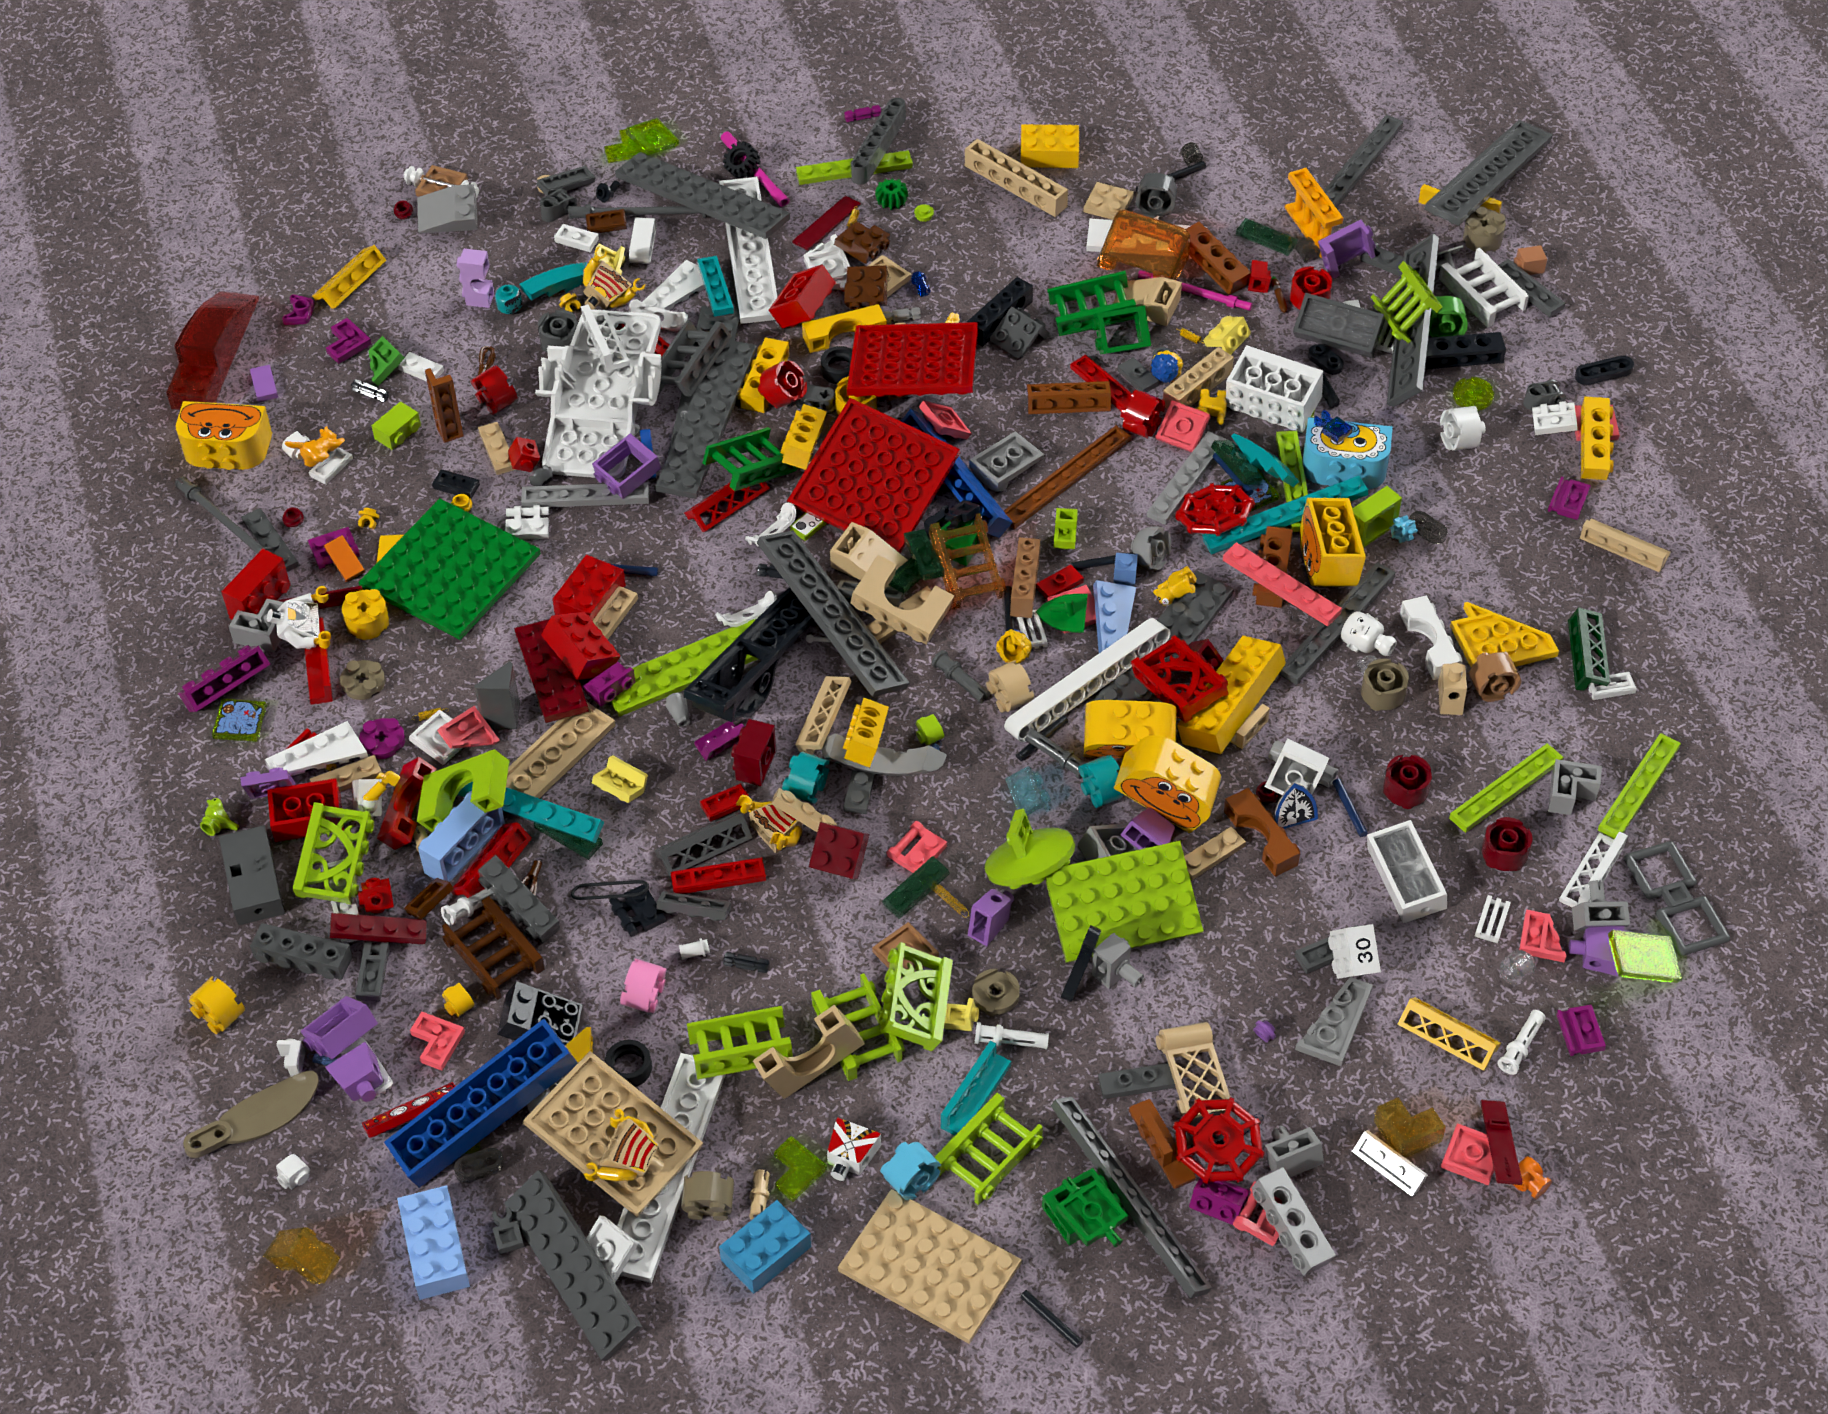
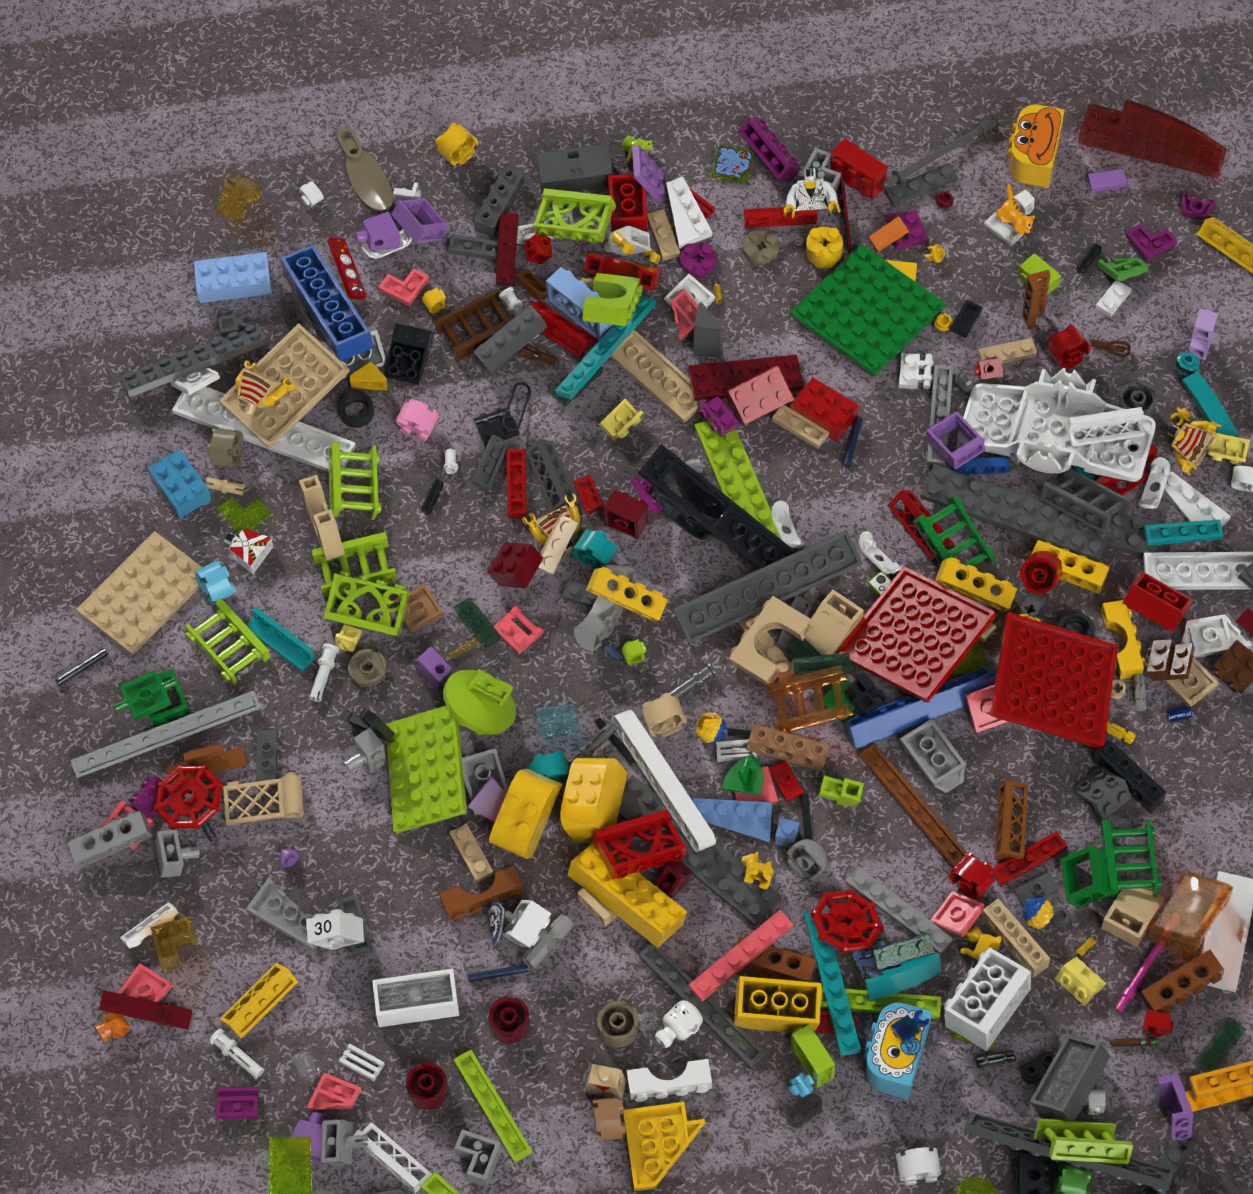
camera: 100 degrees right, 10 degrees up
(822, 714) = (660, 569): tan fence -> none
(1311, 282) = (1126, 1077): red brick -> none

